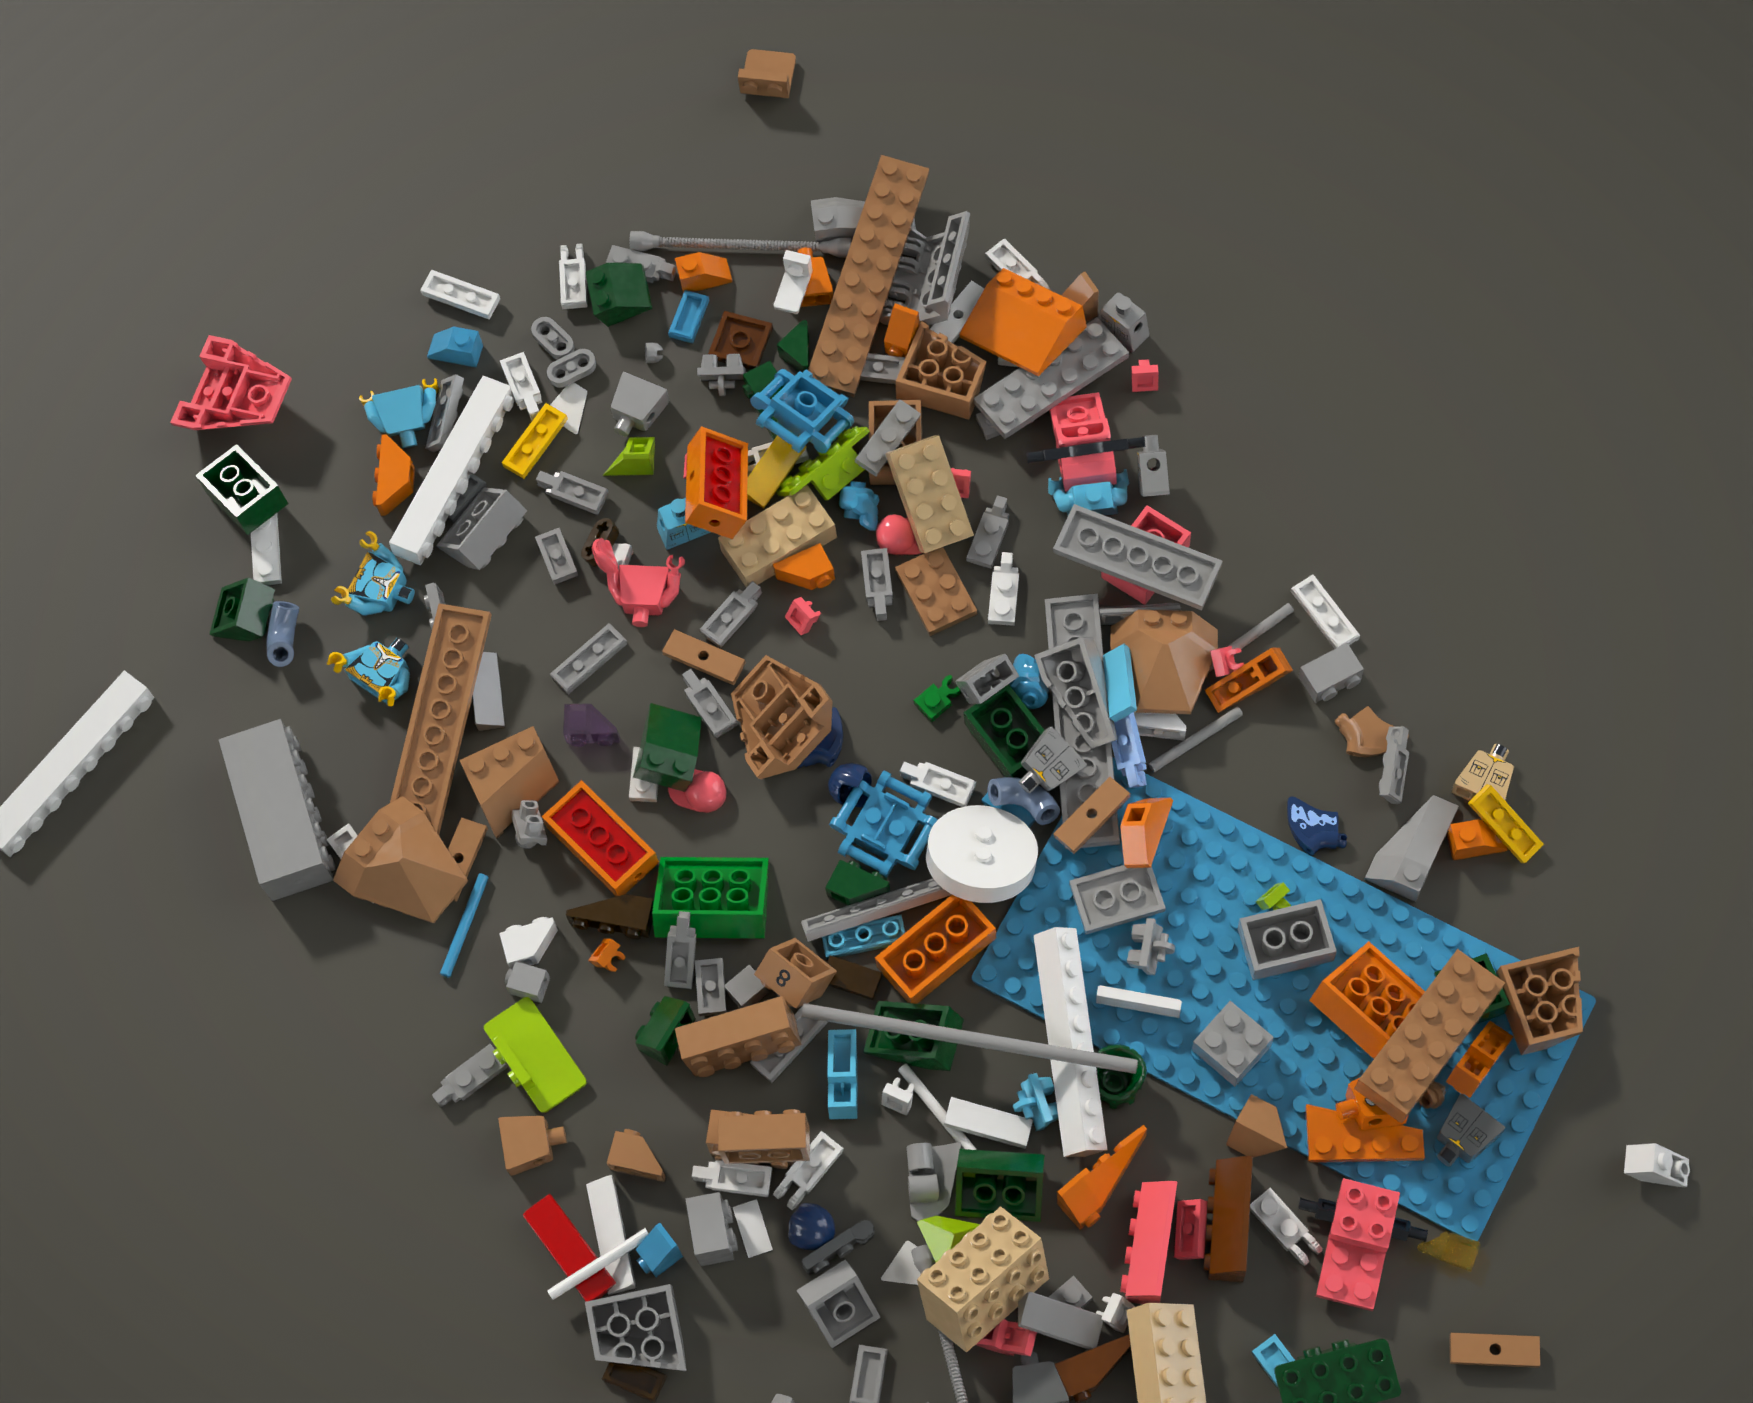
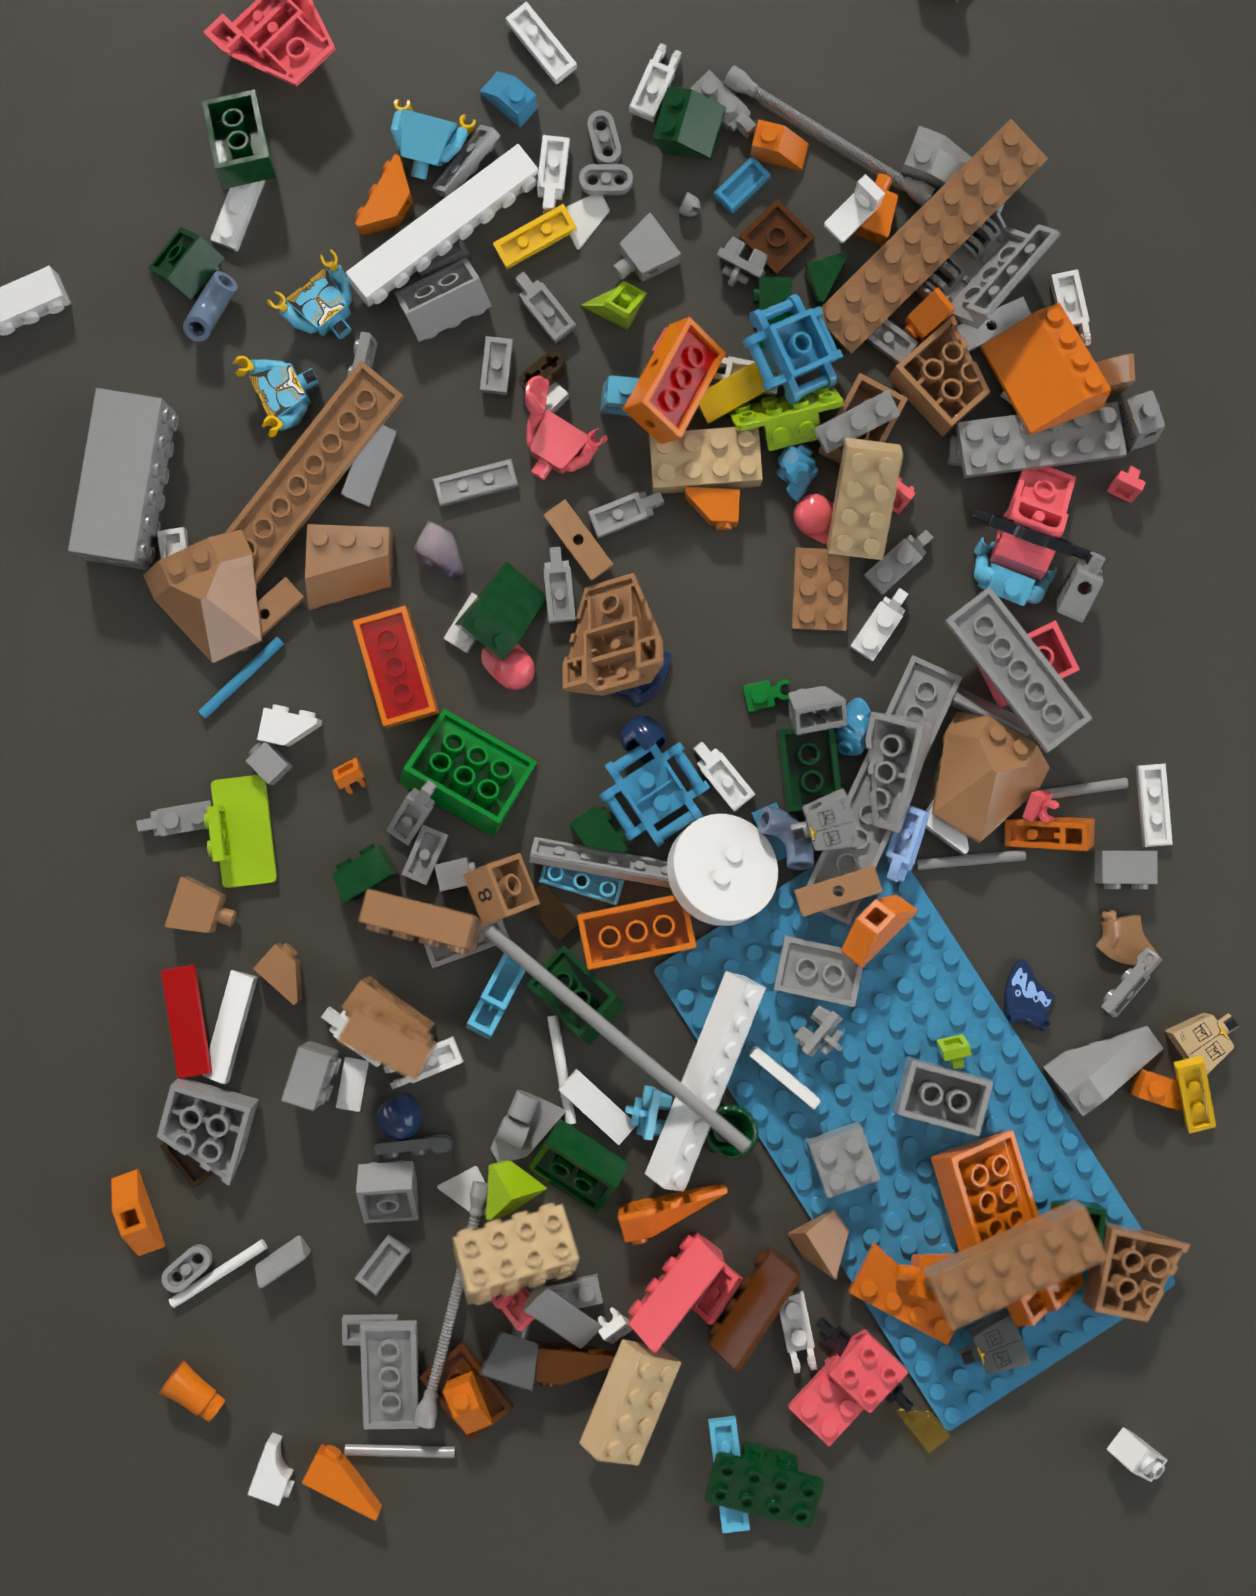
camera: 25 degrees right, 20 degrees up
(528, 825) = (340, 618): light grey hips -> none
(597, 1264) = (203, 1052): white bar -> none
(618, 914) = (382, 746): dark brown slope -> none
(658, 1251) = (259, 1067): dark azure slope -> none
(801, 615) = (686, 549): coral tile -> none
(877, 580) = (773, 552): light grey hinge -> none
(897, 1098) = (532, 1043): white tile -> none
(1119, 682) = (933, 780): medium azure tile -> none
(1513, 1350) = (921, 1538): medium nougat tile -> none

